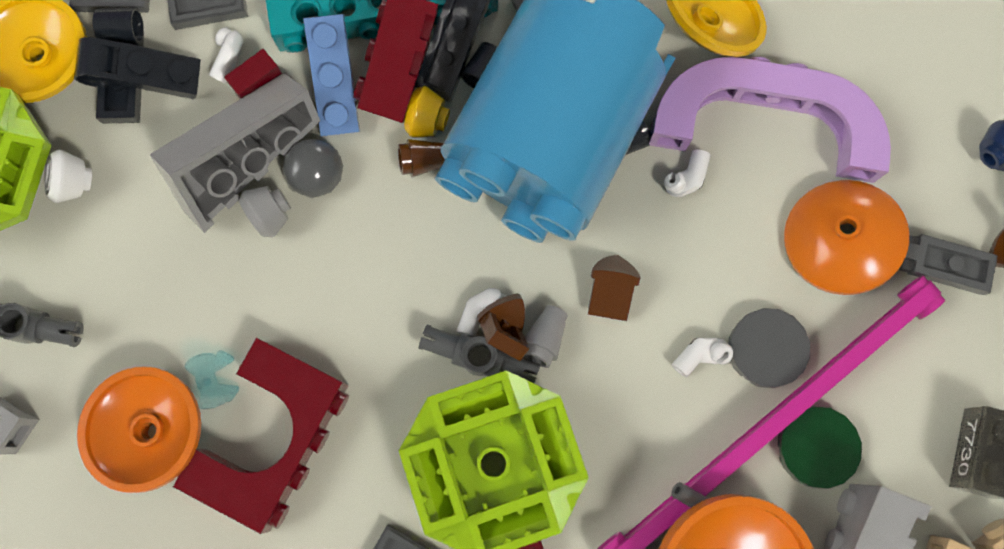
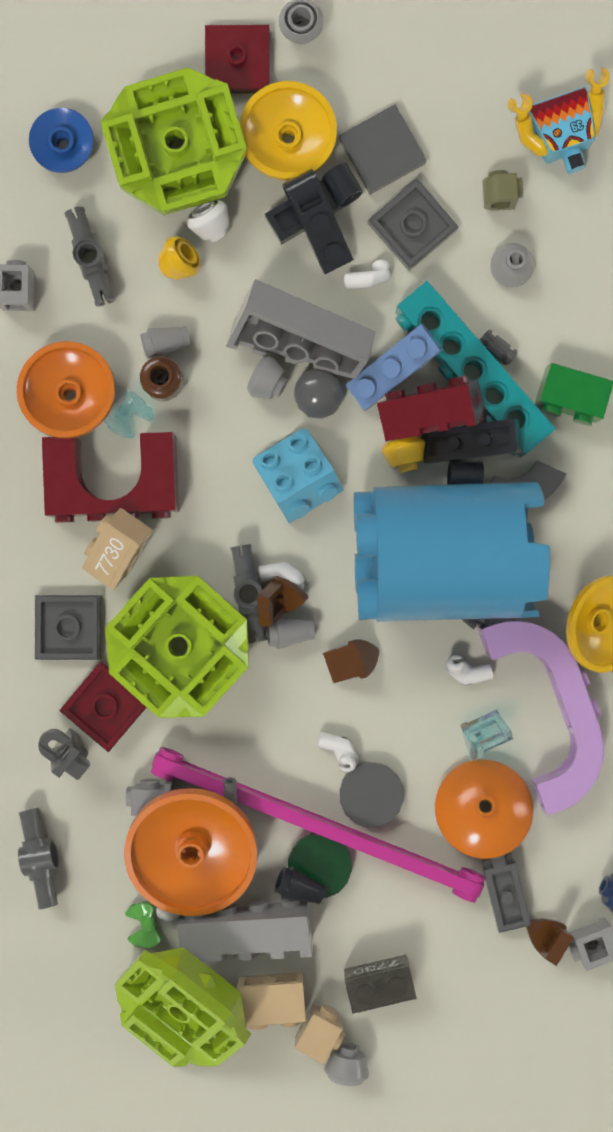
camera: 60 degrees right, 10 degrees up
(83, 231) = (178, 259): none -> yellow cone
(158, 296) = (164, 341): none -> light grey cone
(194, 318) = (161, 367): none -> reddish brown head
(253, 74) = (359, 311): dark red piece -> none
(344, 472) = (116, 548): none -> tan brick
(384, 234) = (297, 475): none -> medium azure bracket
(419, 157) = (371, 468): reddish brown cone -> none
(766, 193) = (485, 734): none -> clear light blue tile
(834, 482) = (298, 886): none -> black cone

